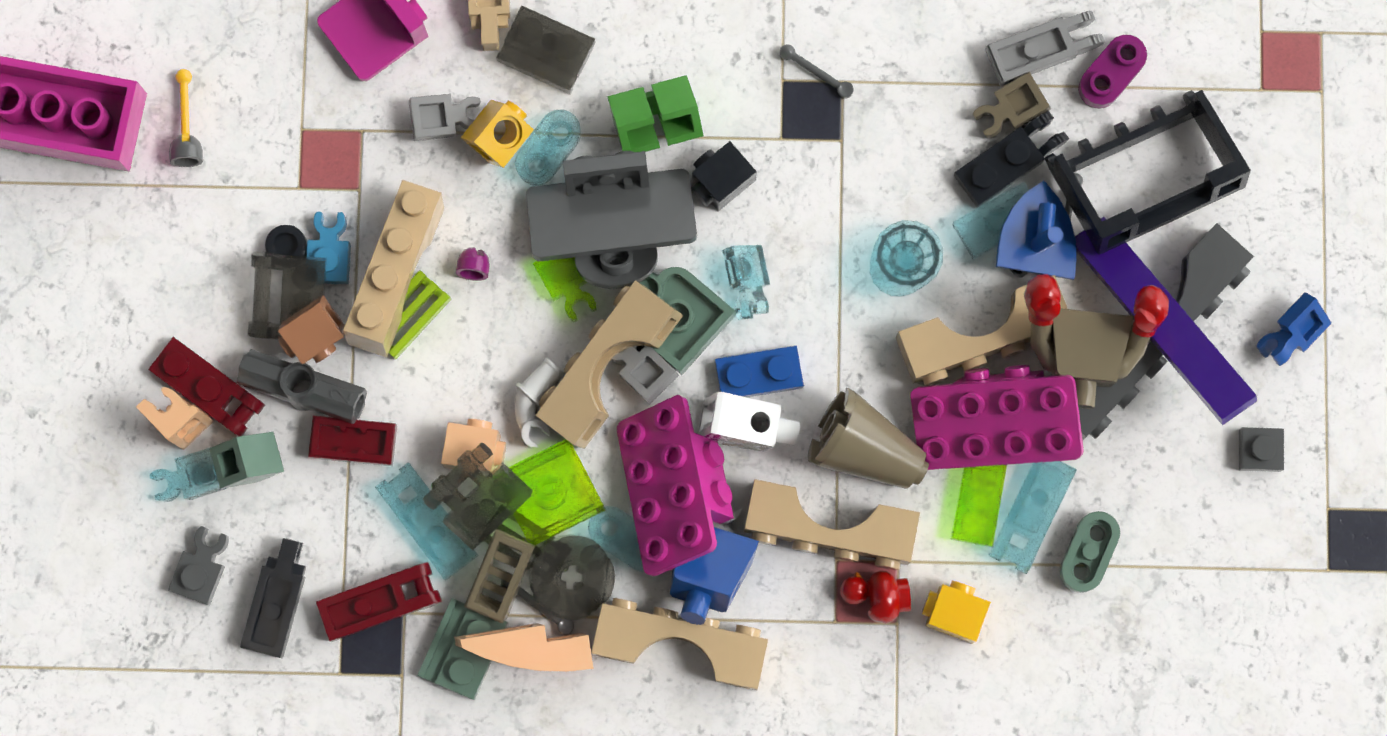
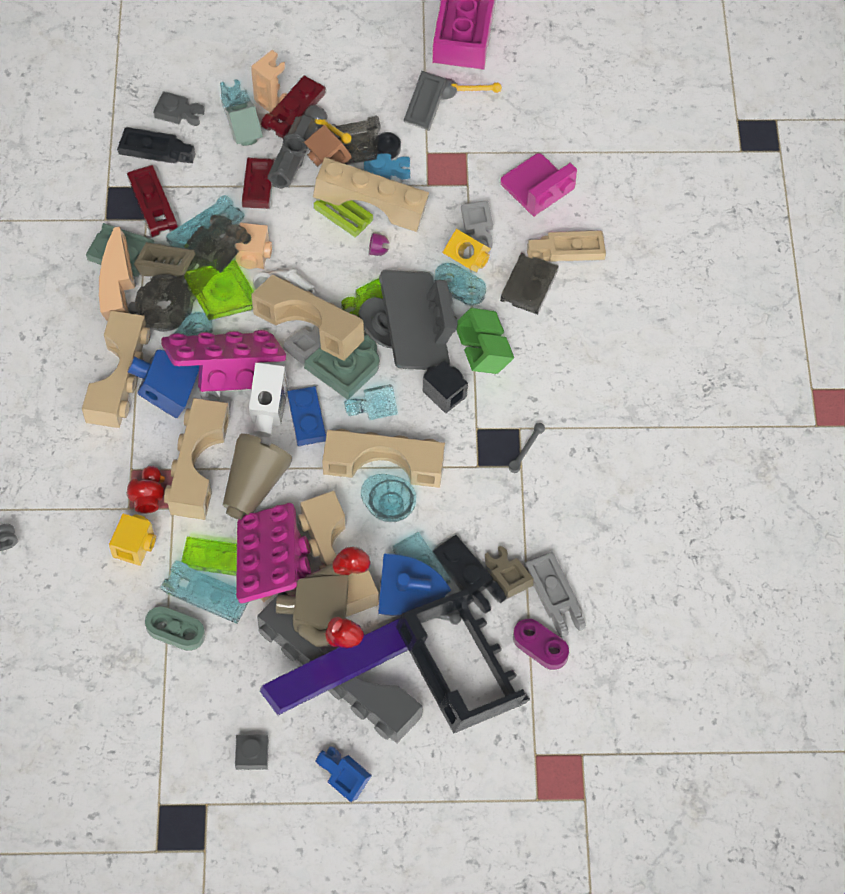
camera: 85 degrees right, 20 degrees down
(213, 182) = (425, 100): none -> dark grey tile
(235, 346) = (320, 117): none -> hinge
(829, 316) = (349, 451): none -> tan arch

